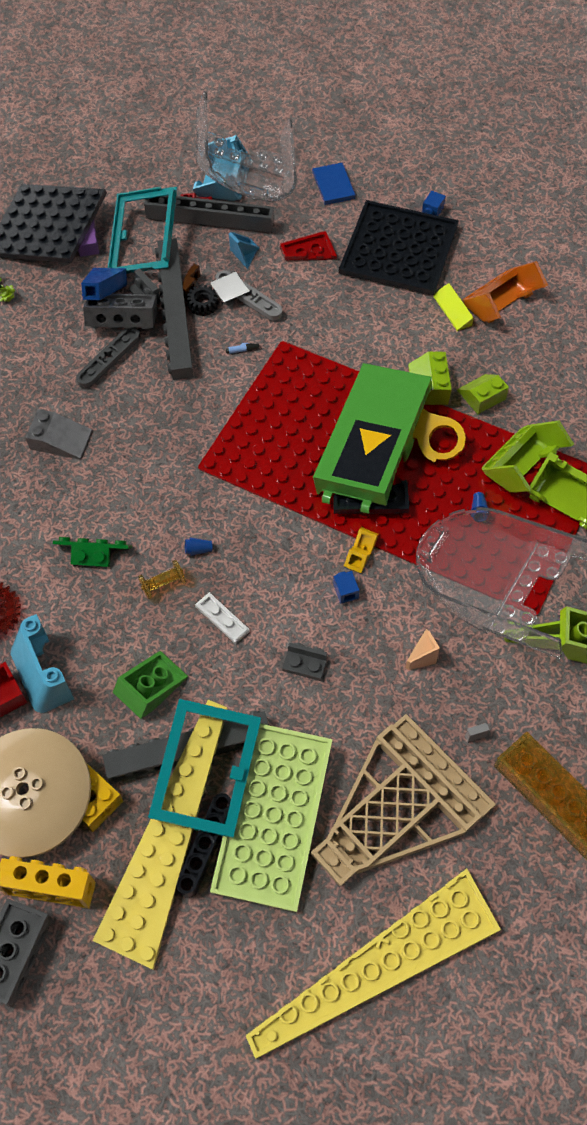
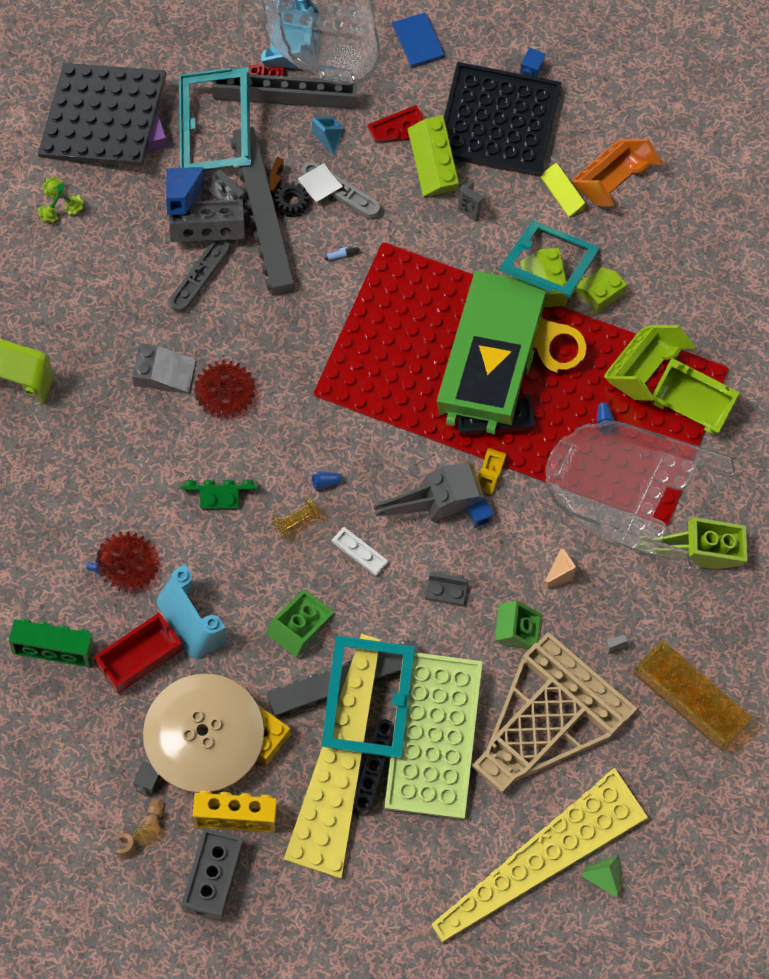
camera: 10 degrees left, 5 degrees up
(113, 456) = (236, 398): none -> clear red gear
(309, 567) = (440, 493): none -> dark grey slope
(336, 271) = (433, 156): none -> lime slope
(365, 308) = (470, 201): none -> dark grey bracket
(374, 704) = (517, 625): none -> bright green slope
(449, 994) = (605, 874): none -> bright green slope
(454, 380) = (525, 243): none -> teal door

